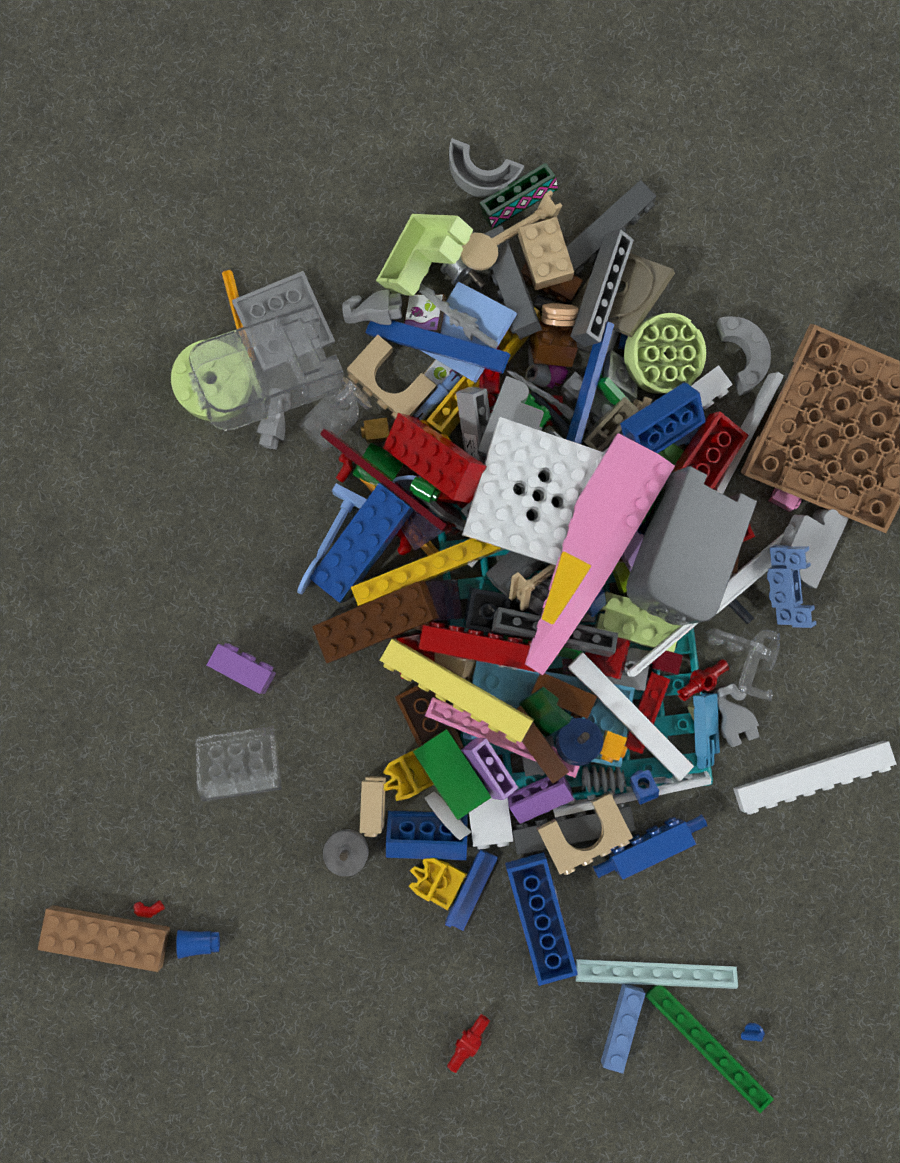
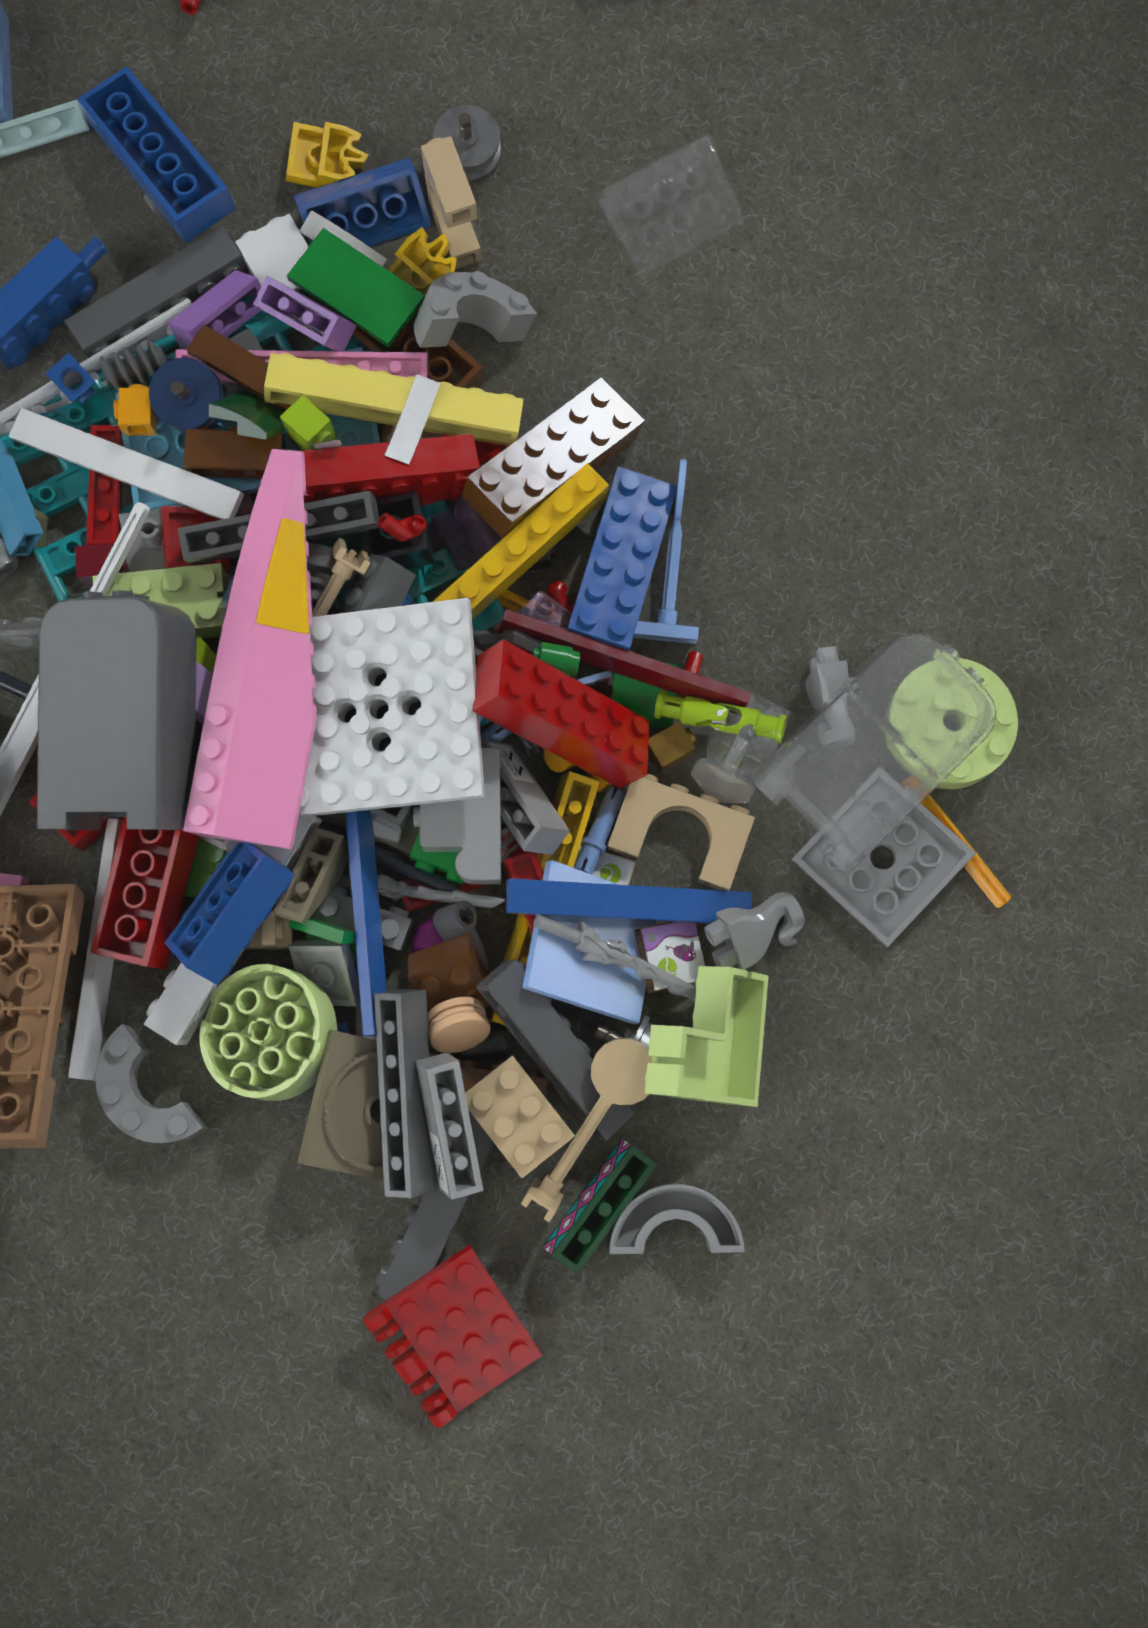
camera: 160 degrees right, 5 degrees down
(242, 667) = (720, 326): medium lavender brick -> none
(353, 437) = (703, 713): none -> lime piece
(384, 745) = (472, 300): none -> light grey brick
(451, 668) = (413, 419): none -> white sticker
(471, 889) = (272, 162): blue fence -> none
(482, 602) = (402, 529): none -> red arm
(514, 688) = (307, 425): none -> lime brick
(585, 259) = (449, 1125): none -> light grey brick
(613, 834) = (145, 244): tan arch -> none
(621, 162) = (457, 1332): none -> red hinge
(703, 680) = (37, 567): red pin -> none

